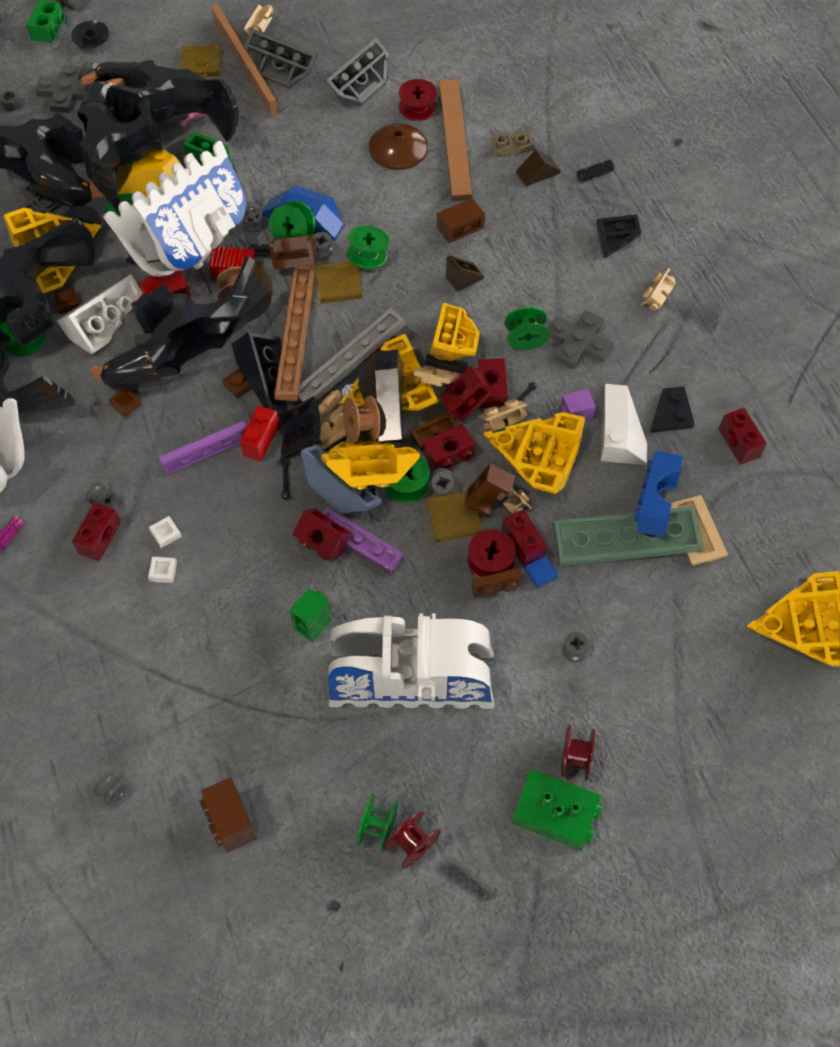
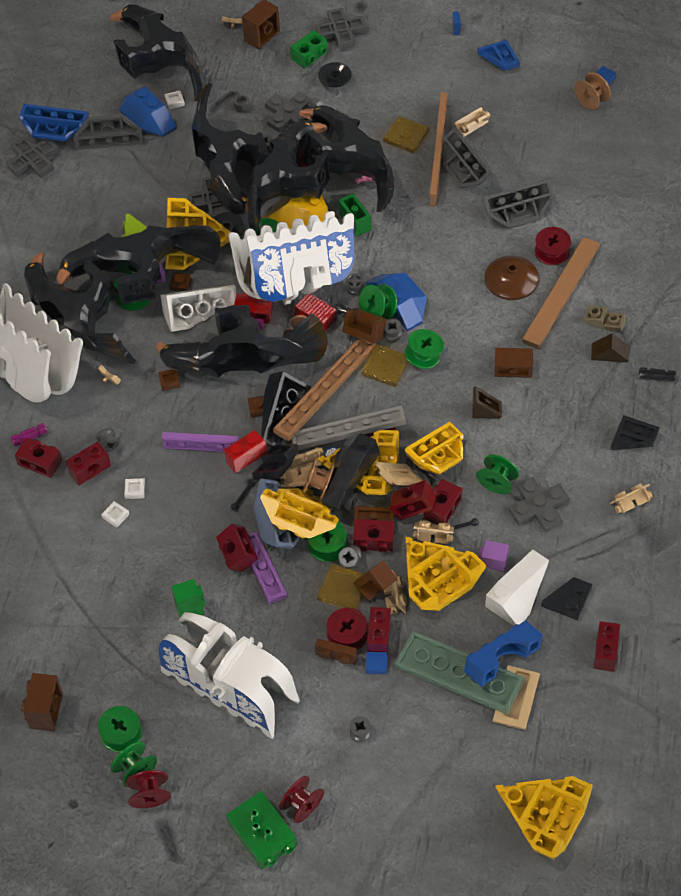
camera: 35 degrees right, 5 degrees down
(45, 560) = (45, 464): none -> dark red brick
(64, 431) = (113, 378): none -> tan piece
(342, 802) = (122, 718): none -> green piece

